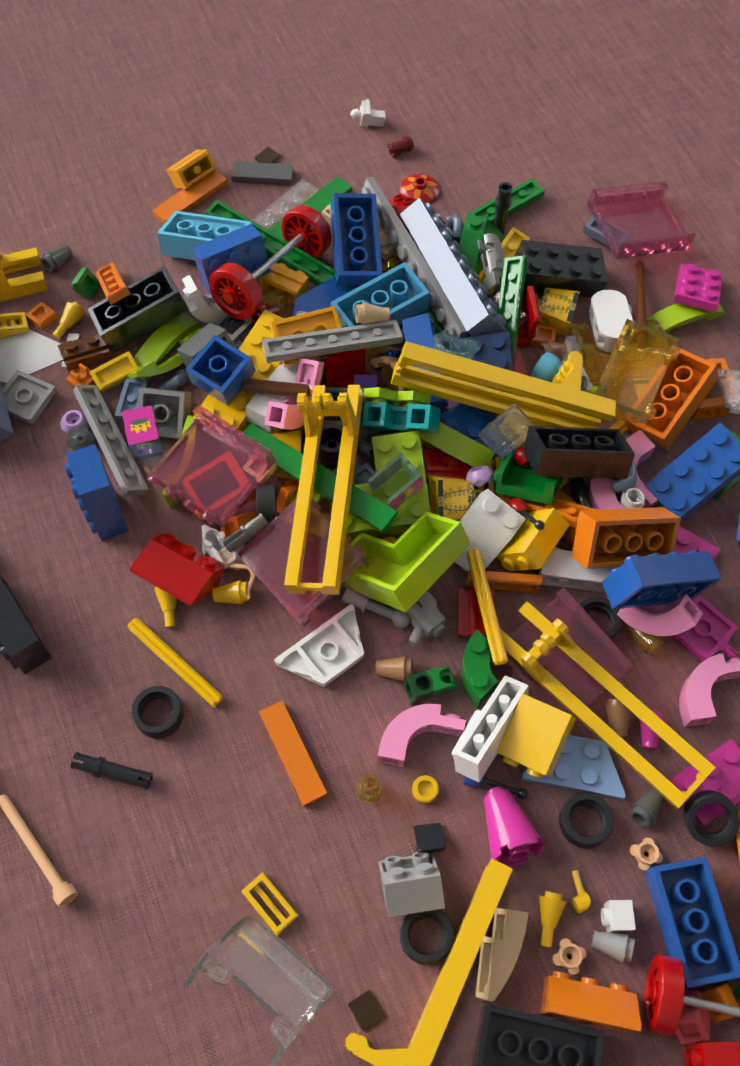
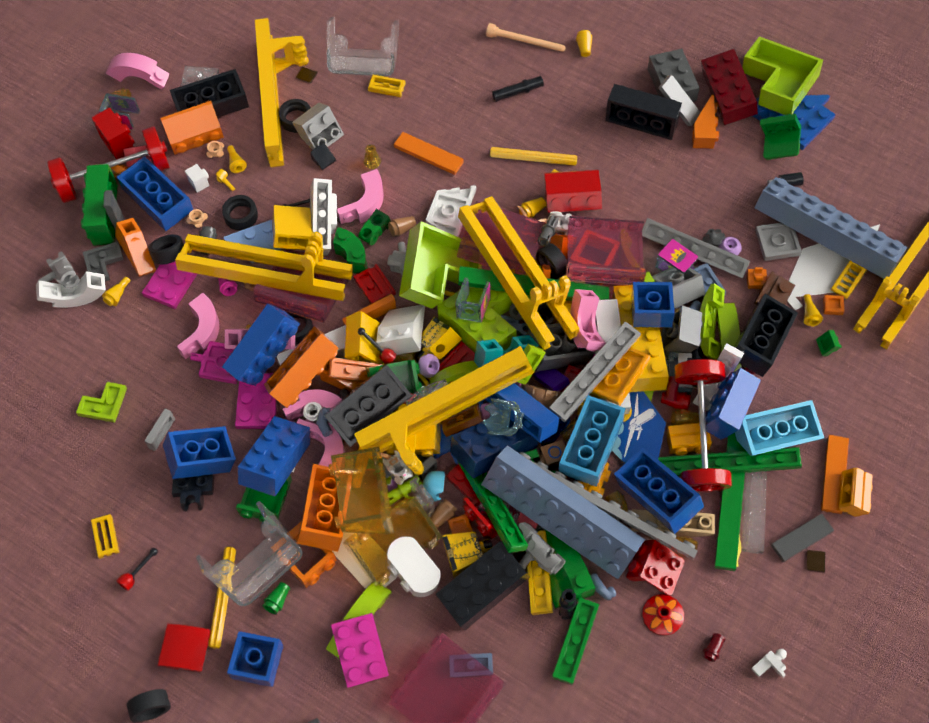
camera: 150 degrees right, 0 degrees up
(55, 258) = (871, 349): dark grey cone -> none
(95, 492) = (655, 188): blue brick -> none
(112, 283) = (802, 342): orange tile -> none
(113, 371) = (738, 291): yellow tile -> none
(144, 698) = (521, 115): black tyre -> none
(274, 387) = (605, 318): reddish brown axle -> none
(371, 313) = (585, 408): tan cone -> none
(425, 789) = (341, 179): yellow tile -> none
(487, 607) = (367, 278): yellow axle -> none
(500, 952) = (252, 128): tan slope -> none
(509, 829) = (280, 179): dark pink cone -> none
(614, 945) = (189, 162): light grey cone -> none
(640, 290) = (380, 558): reddish brown bar -> none

